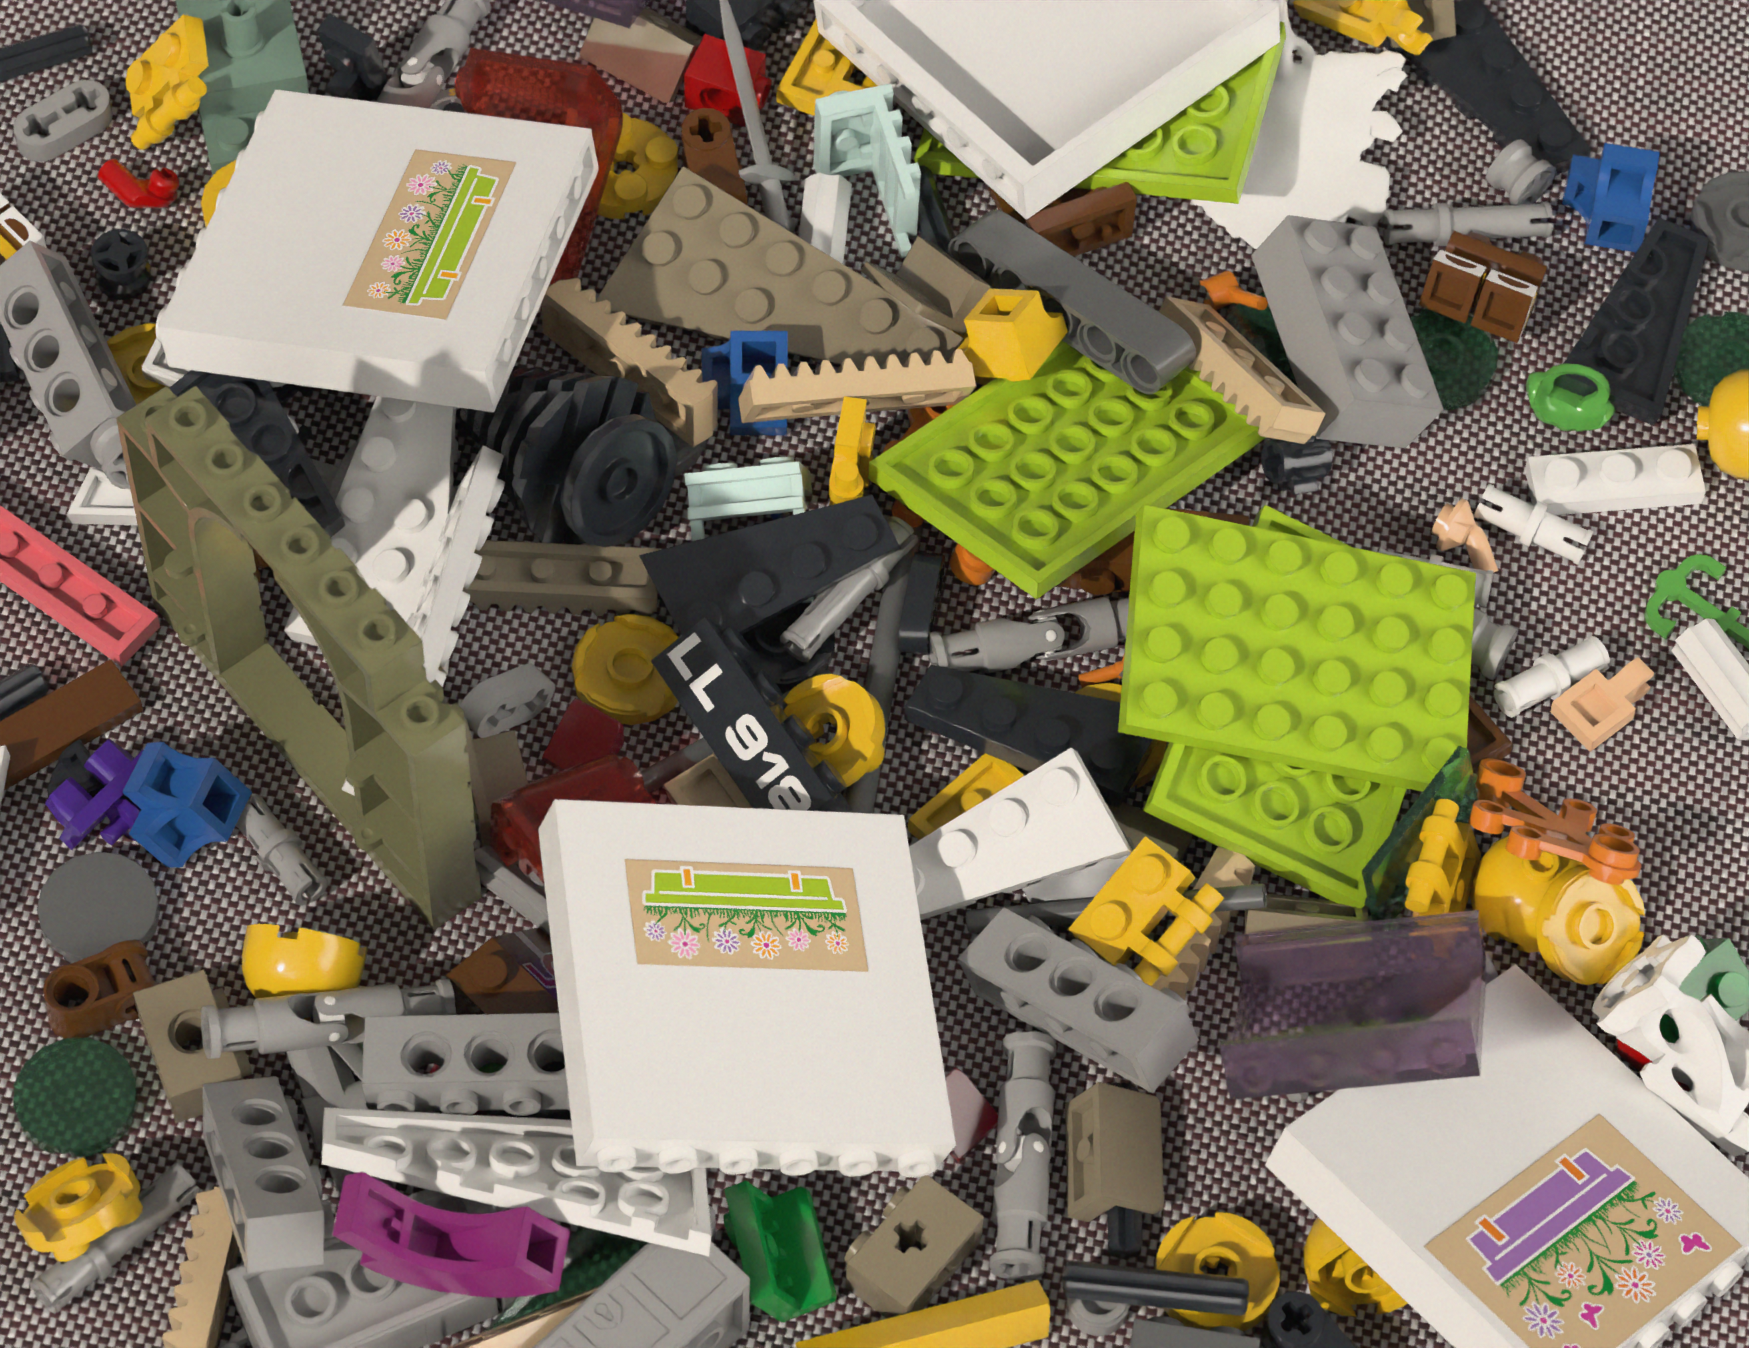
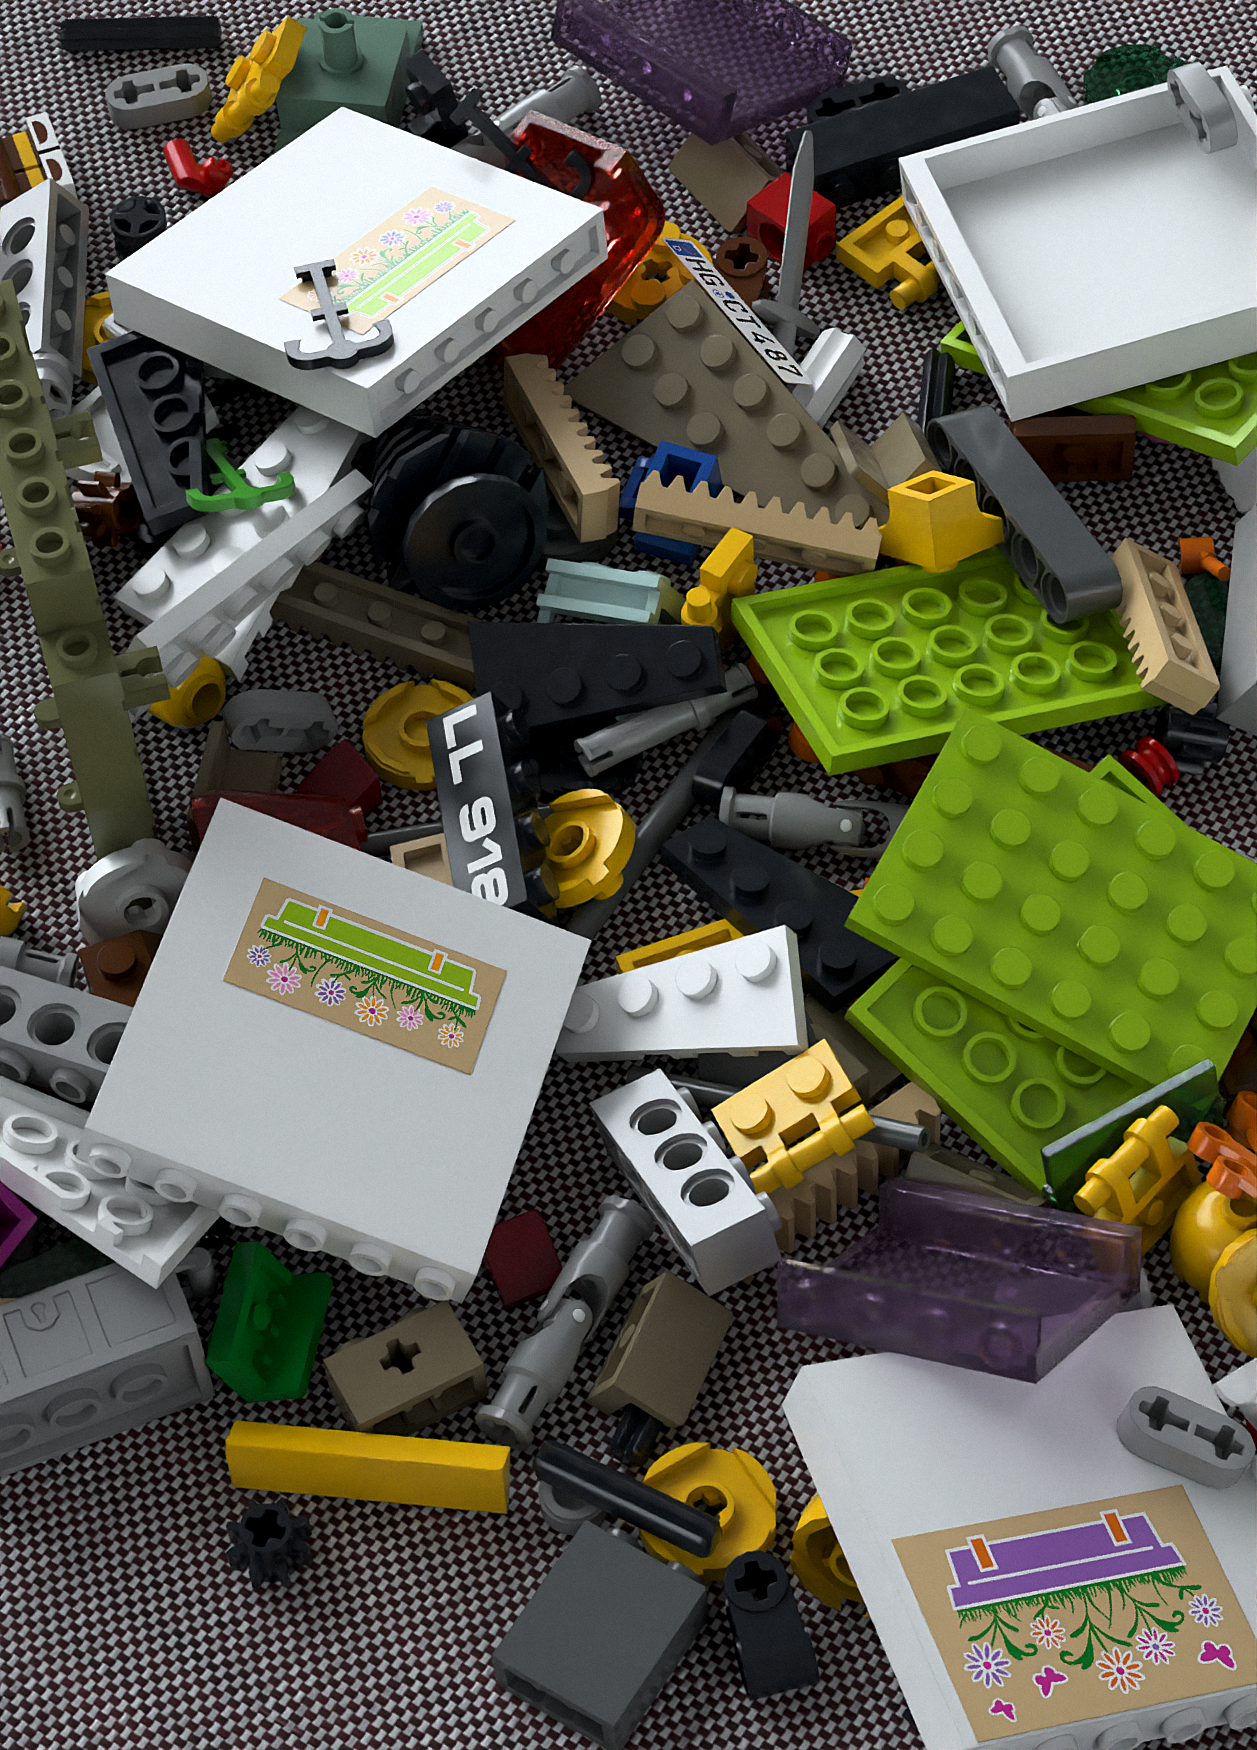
camera: 30 degrees right, 5 degrees down
(381, 501) = (241, 495): none -> bright green piece
(440, 344) = (342, 352): none -> piece
(476, 883) = (123, 876): none -> white plate
(480, 97) = (518, 156): none -> black piece
(731, 184) = (738, 311): none -> white sticker
(864, 134) = (890, 310): light aqua plate -> none
(1274, 492) = (1151, 765): none -> red bush
(1587, 1074) = (1185, 1437): none -> light grey beam

